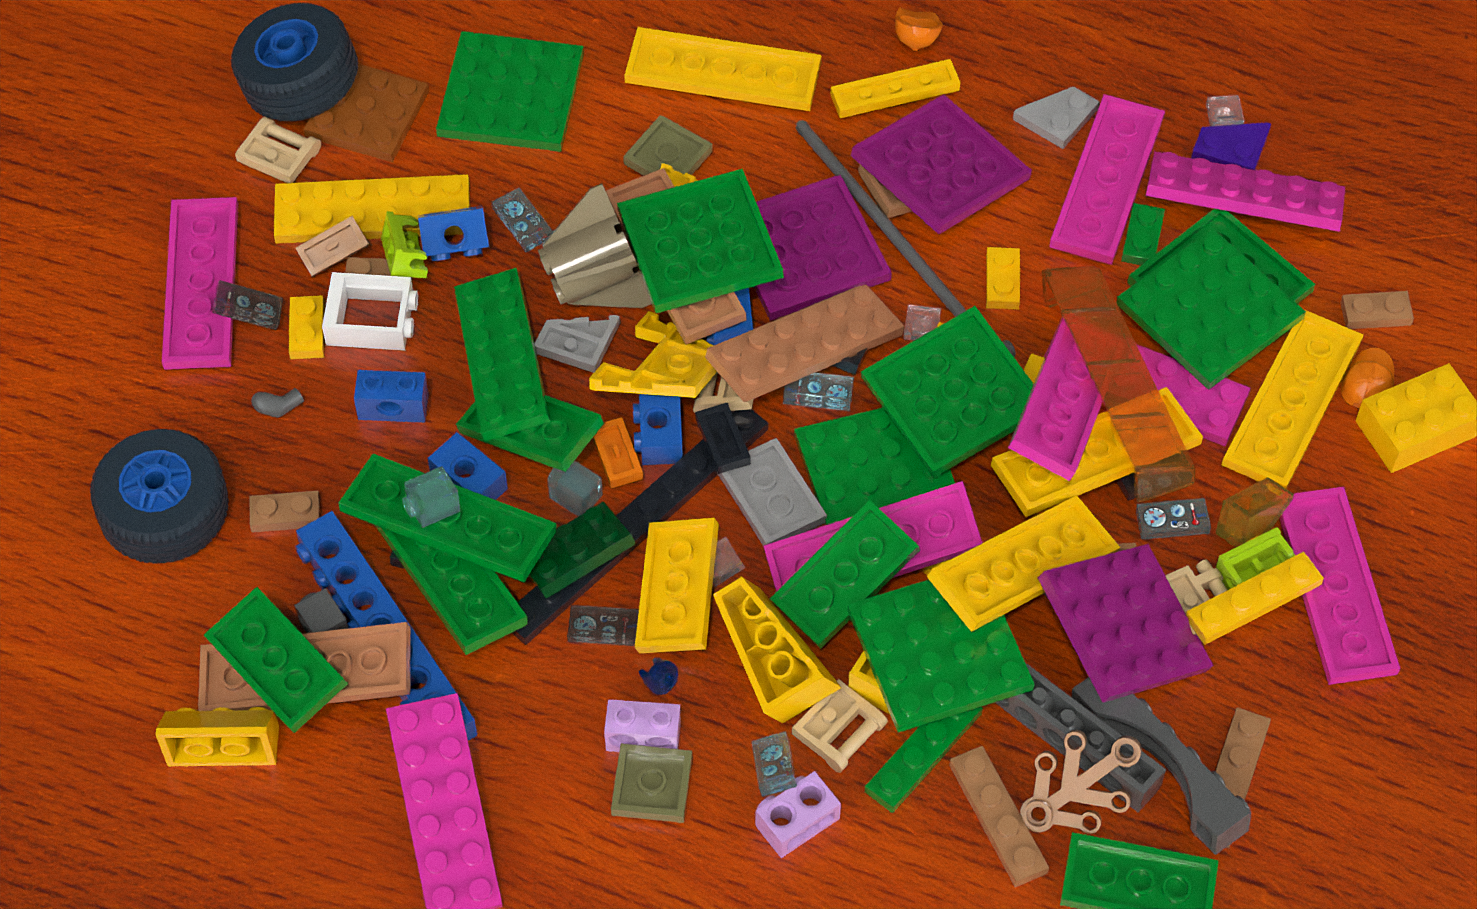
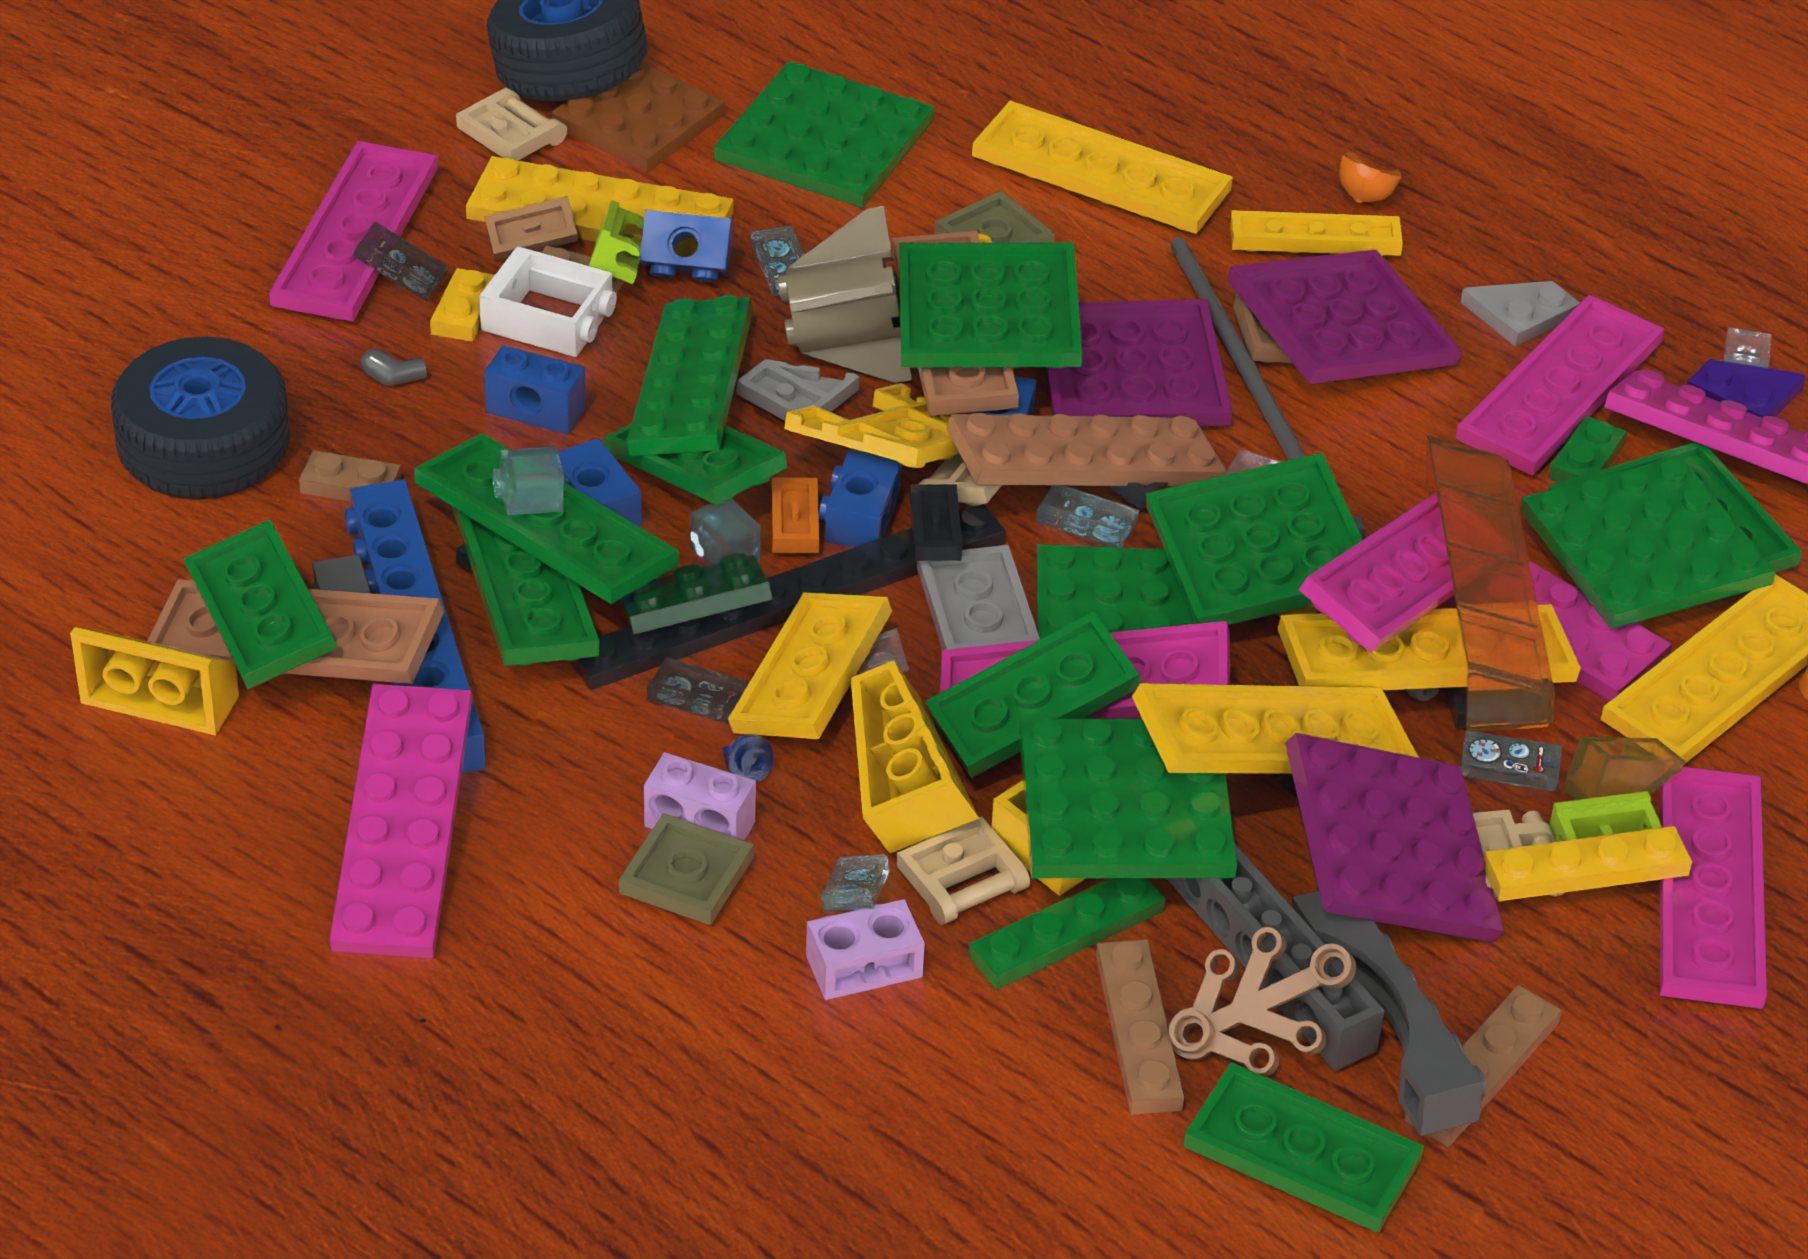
camera: 15 degrees right, 15 degrees down
(1003, 278) = (1380, 456): yellow plate -> none

